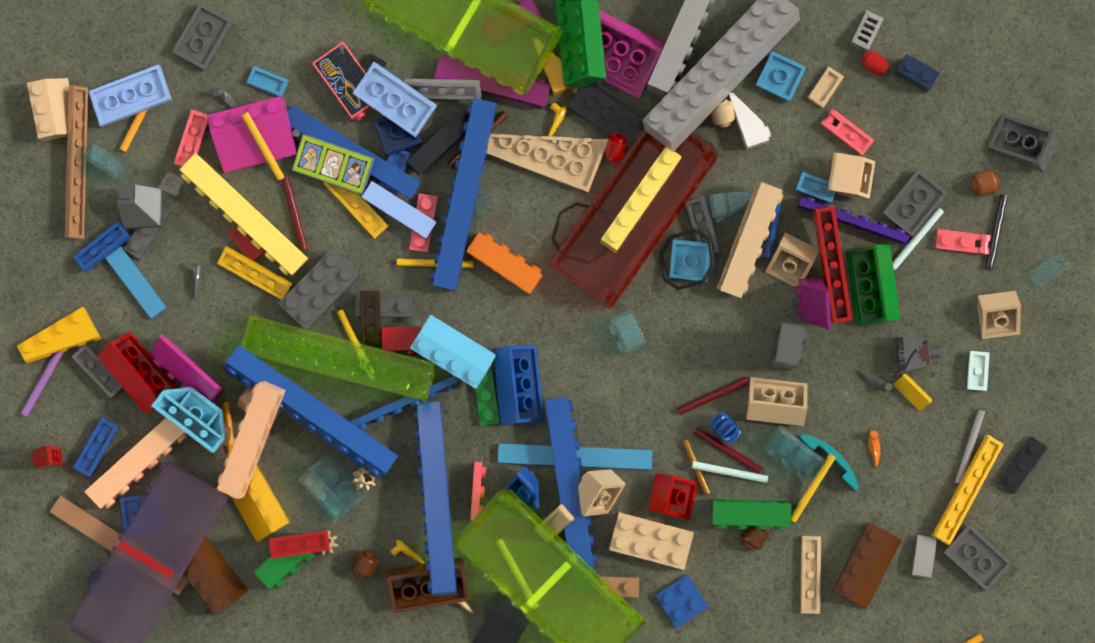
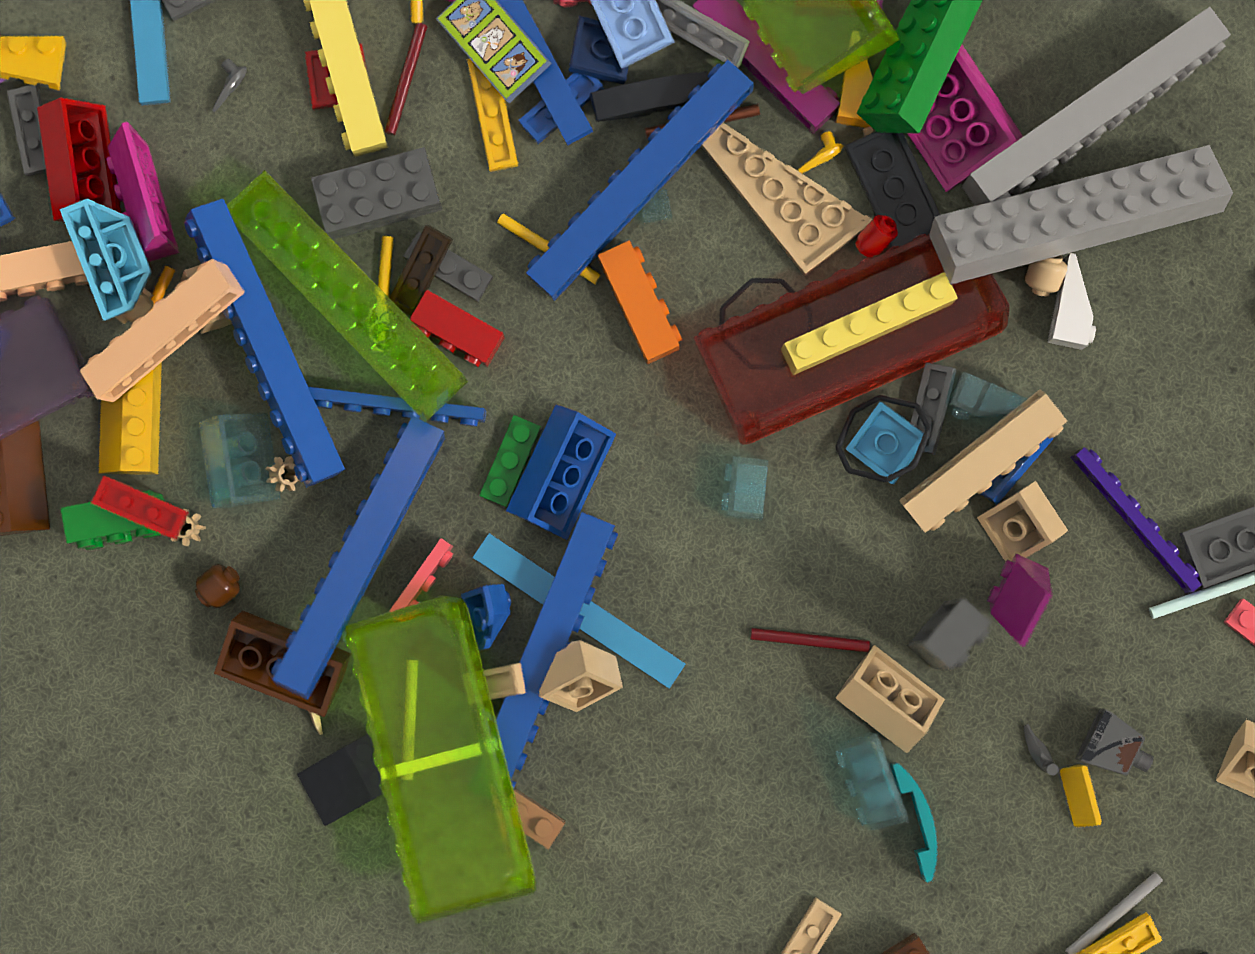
camera: 40 degrees right, 0 degrees up
(254, 273) = (307, 122): yellow tile -> none
(399, 209) = (542, 150): light blue tile -> none
(401, 546) = (283, 596): yellow bar -> none
(426, 205) = (565, 188): coral plate -> none
(453, 351) = (499, 375): medium azure slope -> none
(651, 541) = (611, 784): tan brick -> none
(672, 496) = (675, 741): red slope -> none
(681, 601) = (604, 888): blue plate -> none
(698, 473) = (730, 720): pearl gold bar -> none
(725, 428) = (800, 693): blue gear -> none
(729, 451) = (786, 724): dark red bar -> none
(729, 472) = (770, 754): light aqua bar -> none
(751, 513) = (766, 827): green slope -> none
(753, 538) = (752, 859): reddish brown head -> none
(780, 76) = (1151, 272): dark azure plate -> none
(812, 488) = (868, 843): yellow bar -> none
(815, 187) = (1112, 447): dark azure plate -> none
(825, 87) = (1203, 322): tan tile -> none
(832, 262) = (1077, 555): red brick -> none
(847, 132) = (1197, 398): coral plate -> none
(851, 176) = (1170, 458): tan slope -> none
(873, 285) = (1112, 621): green slope -> none
(874, 446) = (985, 837): orange bar -> none
(978, 371) = (1185, 820): light aqua plate -> none

